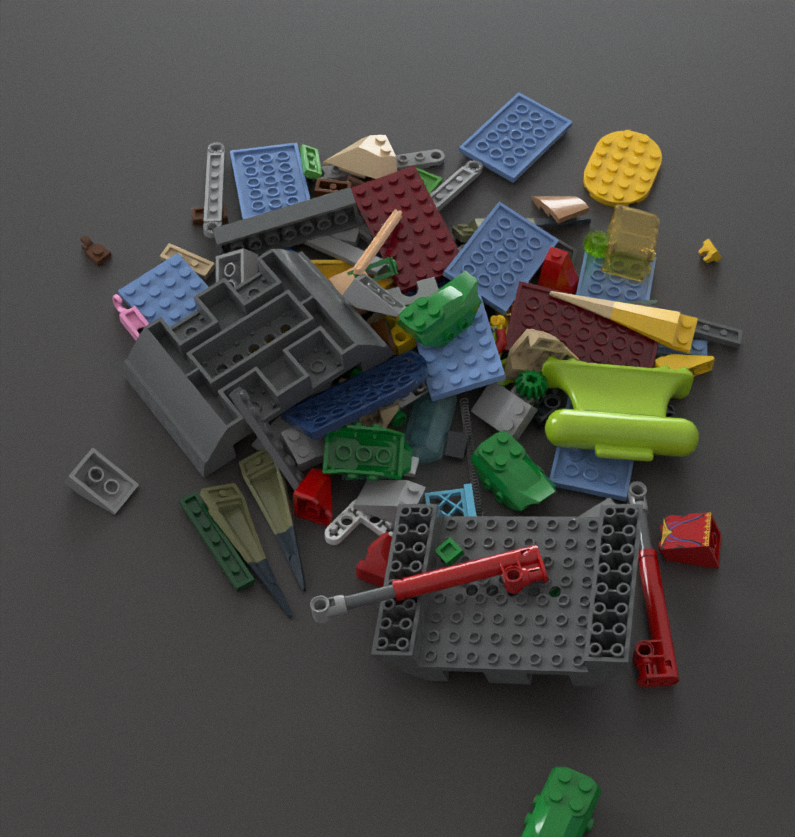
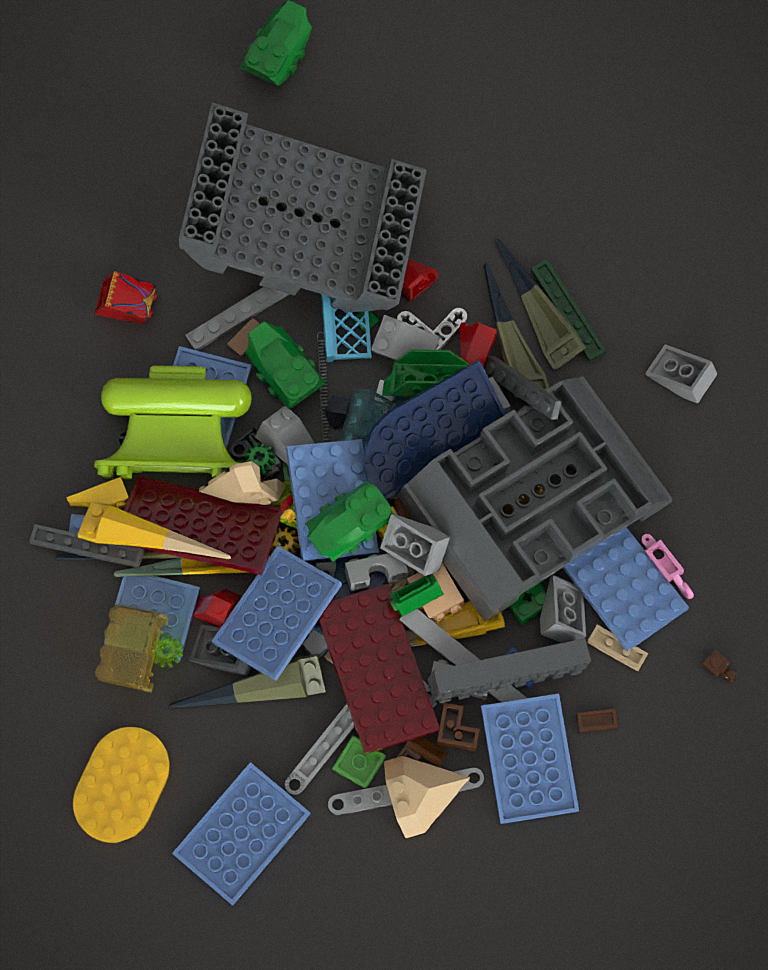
camera: 175 degrees left, 20 degrees up
(214, 188) = (593, 749): light grey plate -> none
(310, 162) = (484, 787): bright green plate -> none
(377, 242) = (410, 623): light nougat axle -> none
(449, 552) = (353, 253): green plate -> none
(519, 564) = (292, 220): red piece -> none
(560, 507) = (239, 342): none -> medium nougat tile
(561, 207) = (200, 718): medium nougat slope -> none
(659, 664) = (171, 186): red piece -> none
(711, 251) = (41, 652): yellow tile -> none

